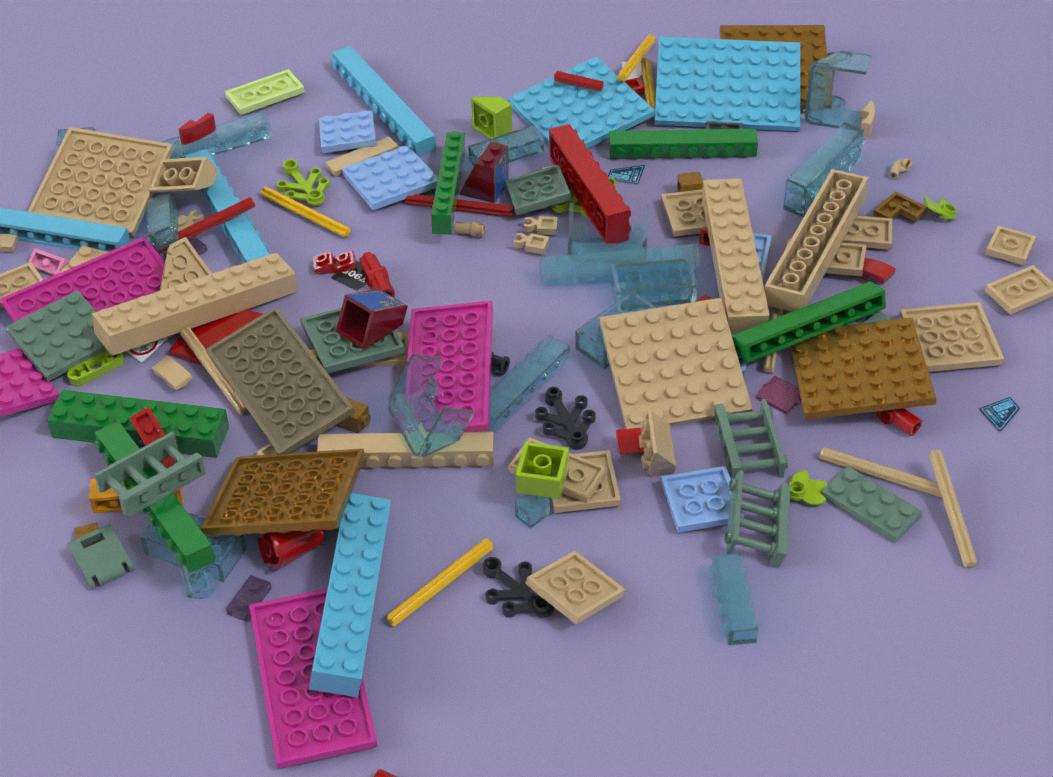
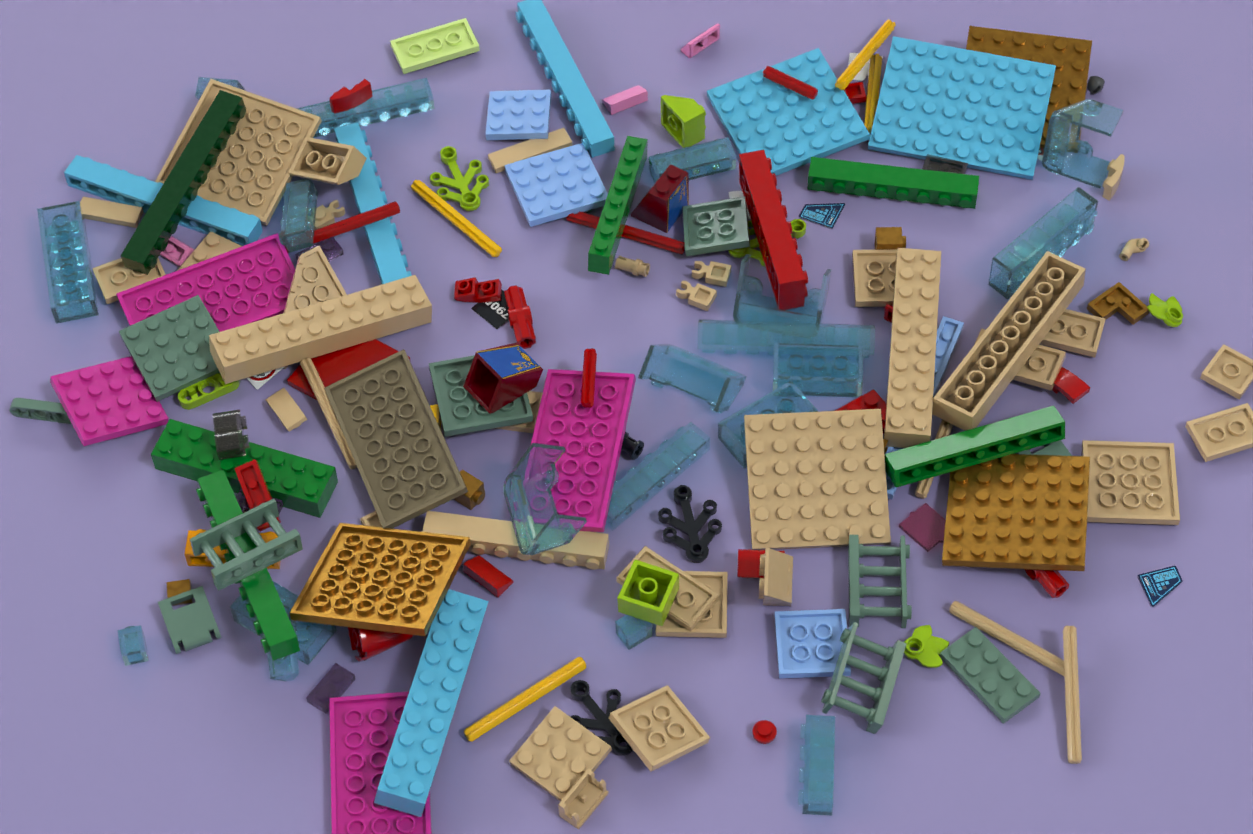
camera: 10 degrees right, 10 degrees up
(46, 585) = (133, 645): none -> clear light blue brick
(52, 207) = (183, 182): none -> dark green brick
(121, 391) = (230, 435): none -> clear smoke brick
(384, 484) = (487, 575): none -> red slope
(438, 112) = (625, 99): none -> bright pink slope
(450, 308) = (588, 378): none -> red axle
(484, 625) = (559, 753): none -> tan plate
(495, 65) = (702, 41): none -> bright pink slope
(514, 660) = (582, 799): none -> tan hinge
(542, 302) = (693, 374): none -> clear light blue windscreen
(675, 579) = (764, 731): none -> red plate

